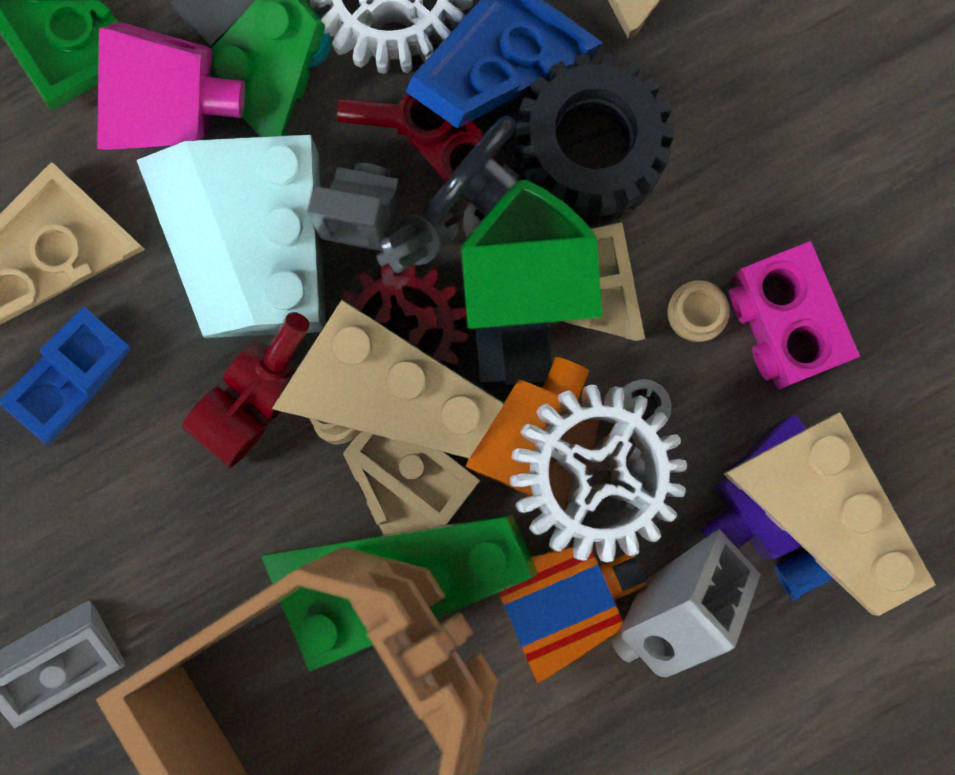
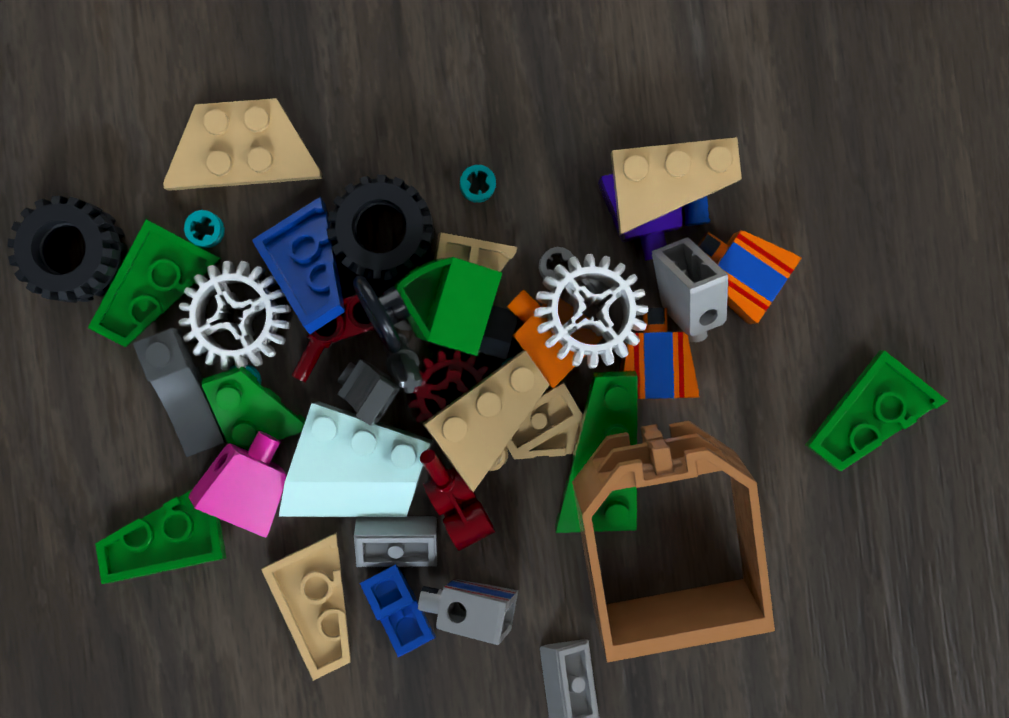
camera: 65 degrees left, 5 degrees up
(103, 478) = (487, 607): none -> light grey torso
(162, 336) = (396, 540): none -> light grey slope
(698, 311) = (512, 206): tan plate -> none
(699, 236) = (465, 185): none -> teal bush
(750, 690) = (753, 269): none -> torso
(809, 311) = (539, 140): dark pink brick -> none

